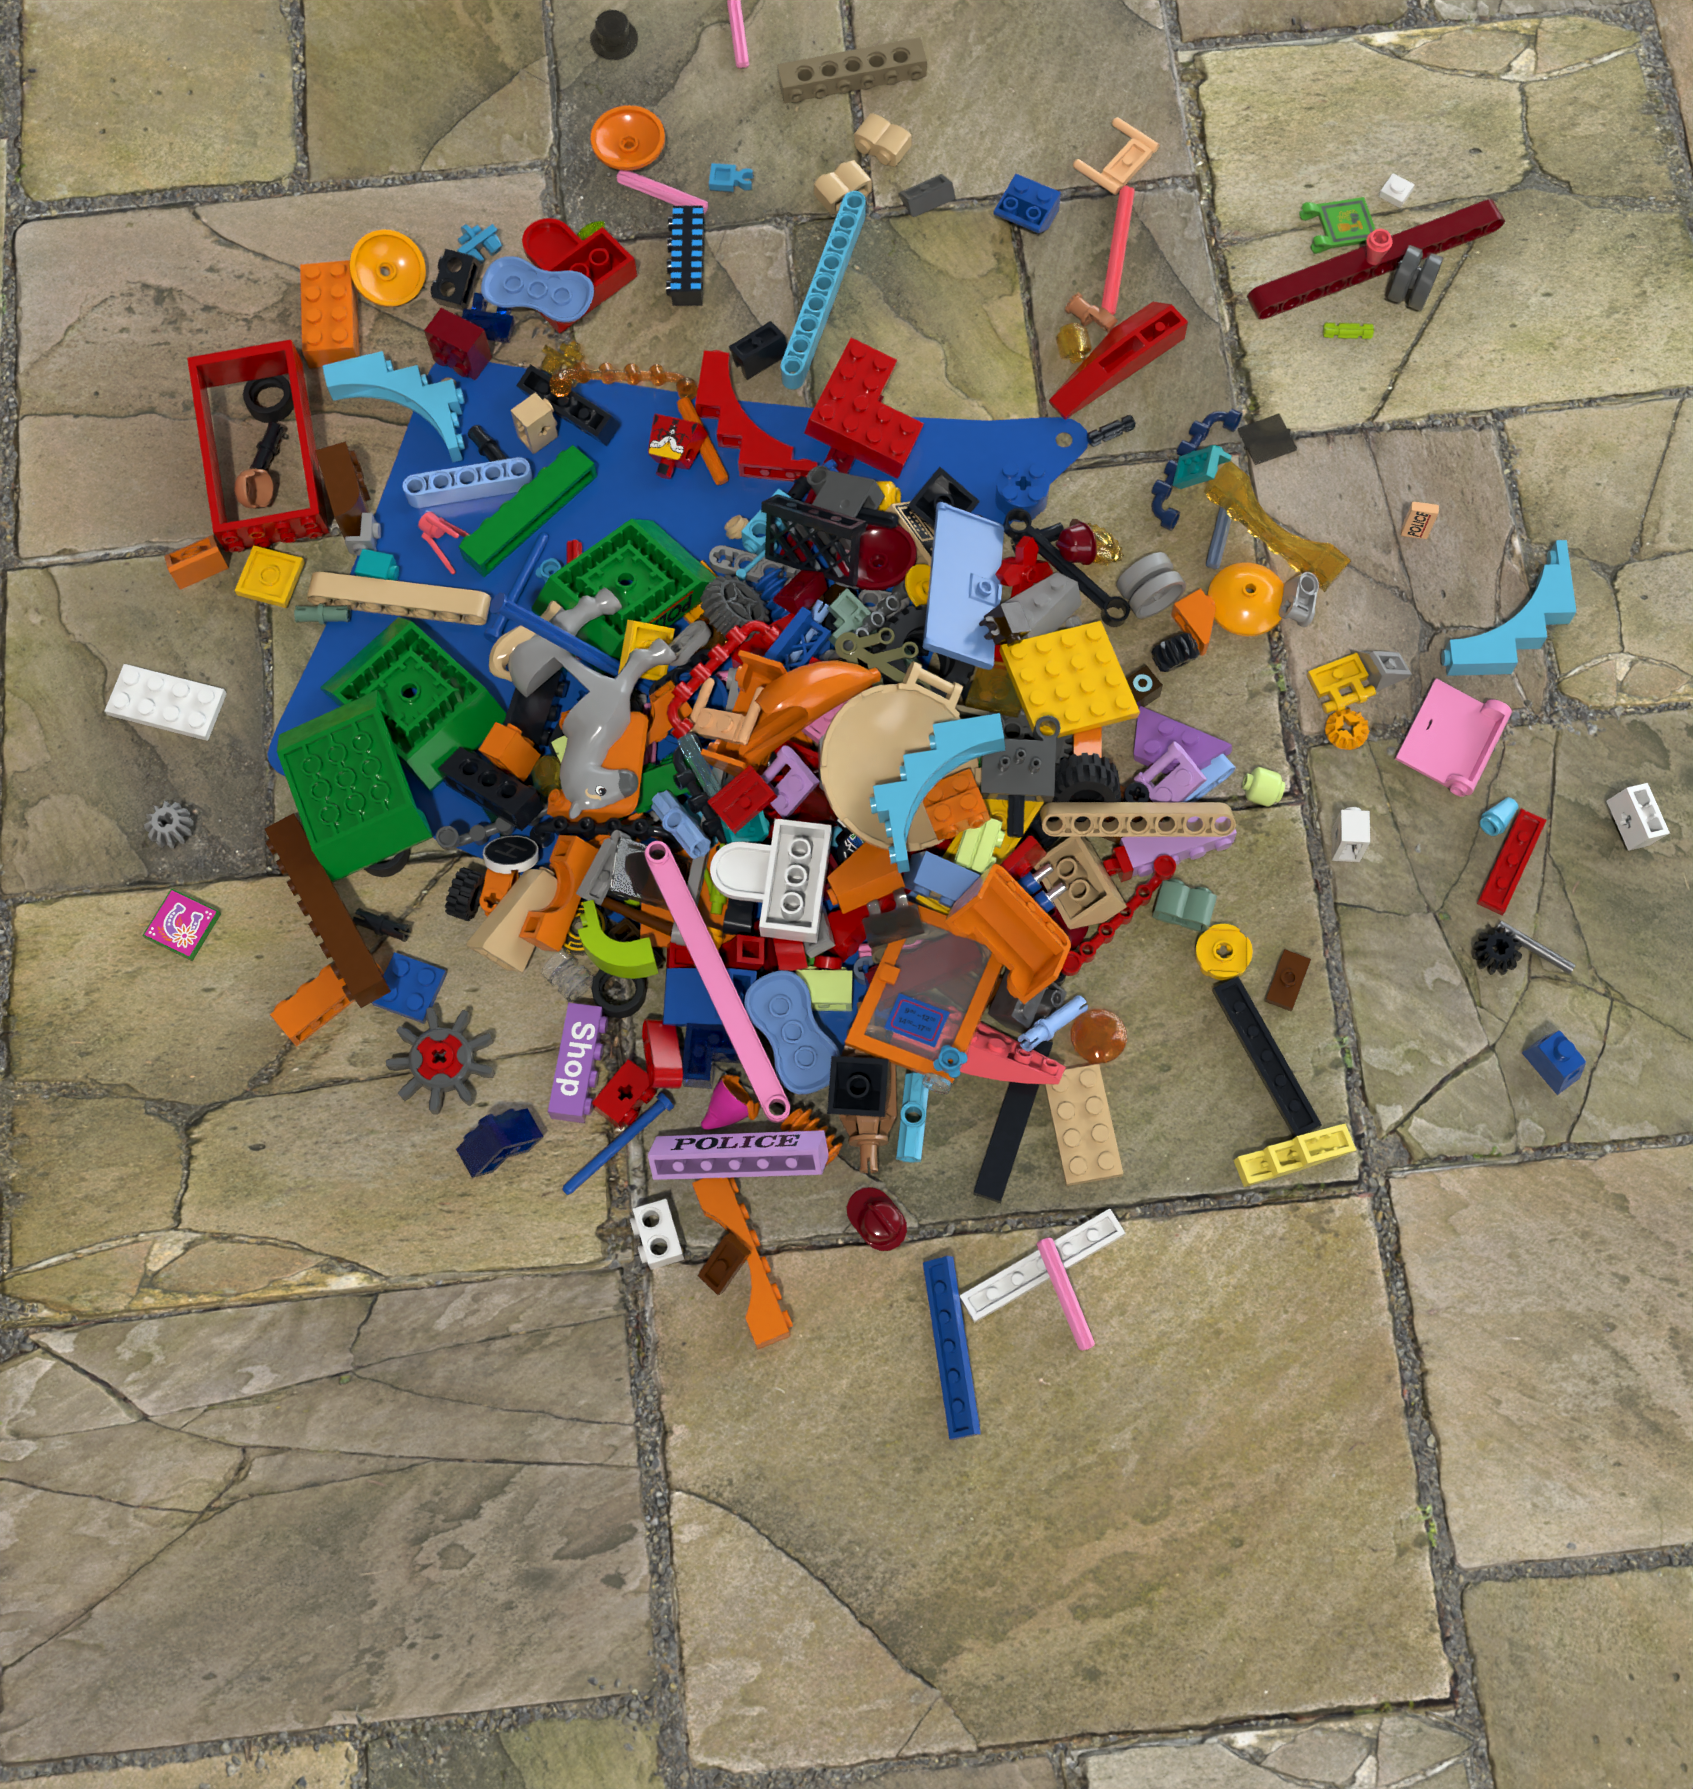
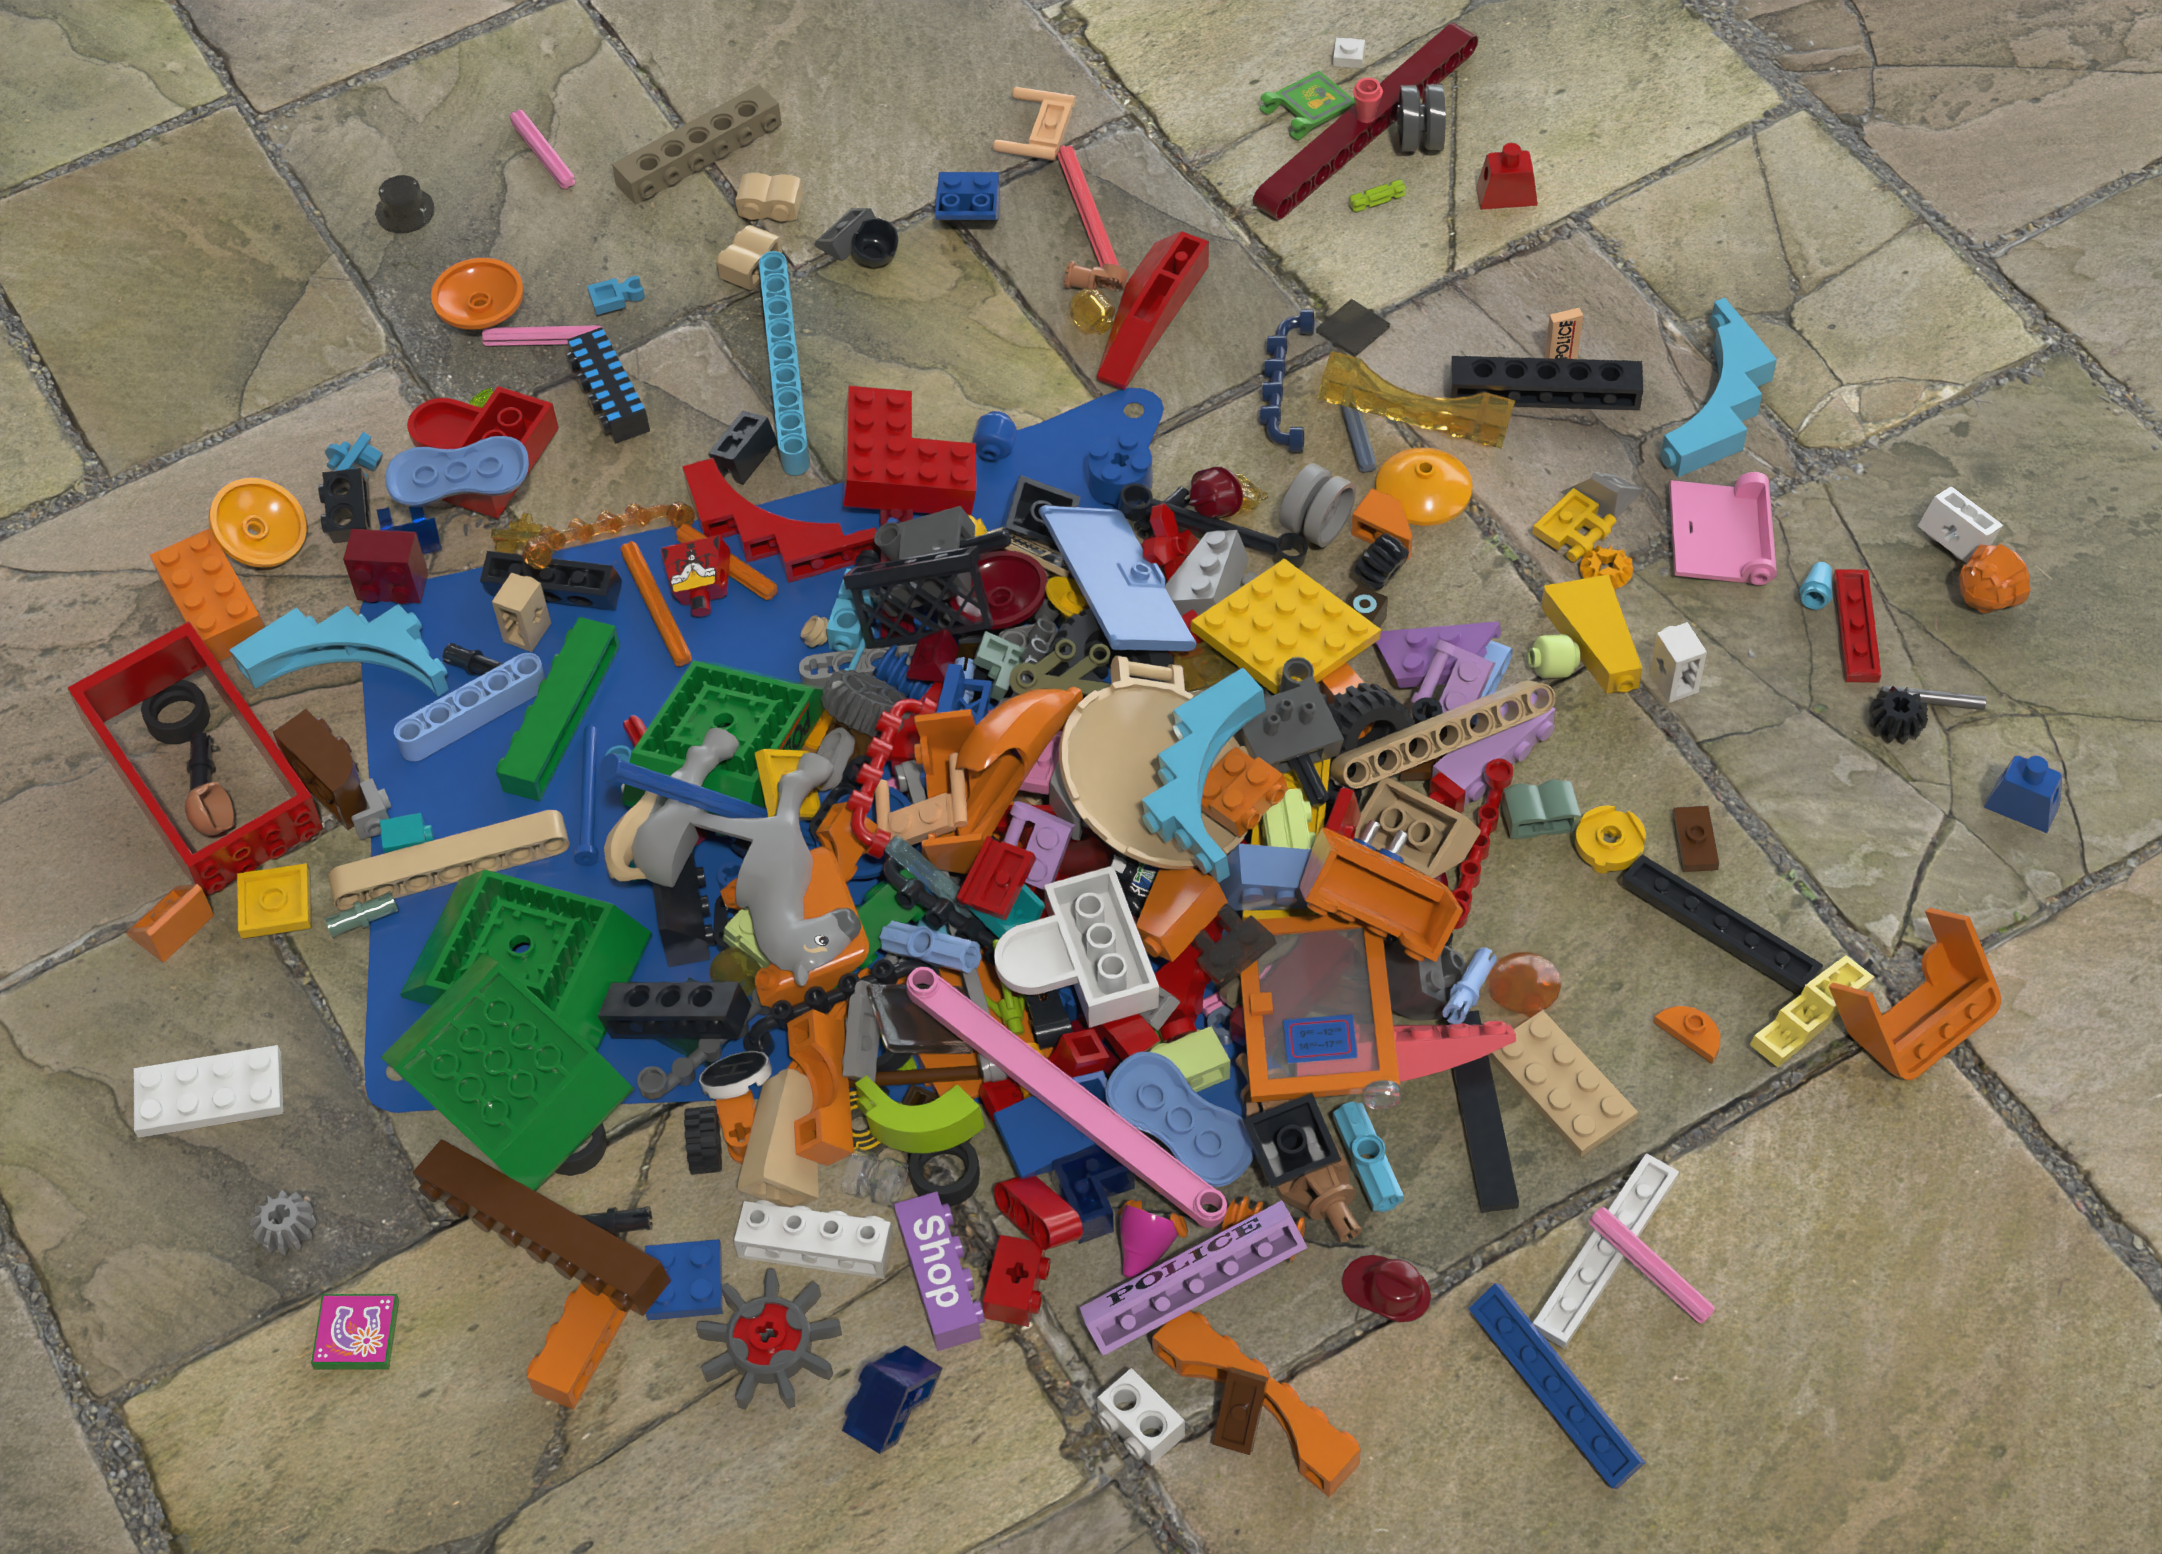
camera: 25 degrees left, 15 degrees down
(436, 527) = (455, 767): coral plant -> none
(506, 1000) = (814, 1239): none -> white brick
(510, 750) = (679, 953): orange brick -> none
(616, 1145) = (1065, 1270): blue bar -> none
(636, 454) = (656, 604): none -> orange axle
(940, 214) = (875, 242): none -> black hair
(945, 420) = (994, 435): none -> blue head
(947, 1053) = (1386, 1051): dark azure plate -> none
(1006, 624) = (1187, 595): dark brown brick -> none
(1111, 430) = (1181, 381): black axle -> none
(1199, 466) = (1302, 370): teal bracket -> none
(1200, 1128) = (1692, 1029): none -> orange plate
(1300, 599) = (1482, 460): light grey piece -> none
(1307, 773) = (1593, 619): none -> yellow slope
(1380, 1200) = (1936, 1015): none -> orange windscreen
(1390, 564) = (1551, 381): none -> black brick
(1455, 361) = (1507, 179): none -> red torso
(1636, 874) = (1994, 579): none -> orange helmet

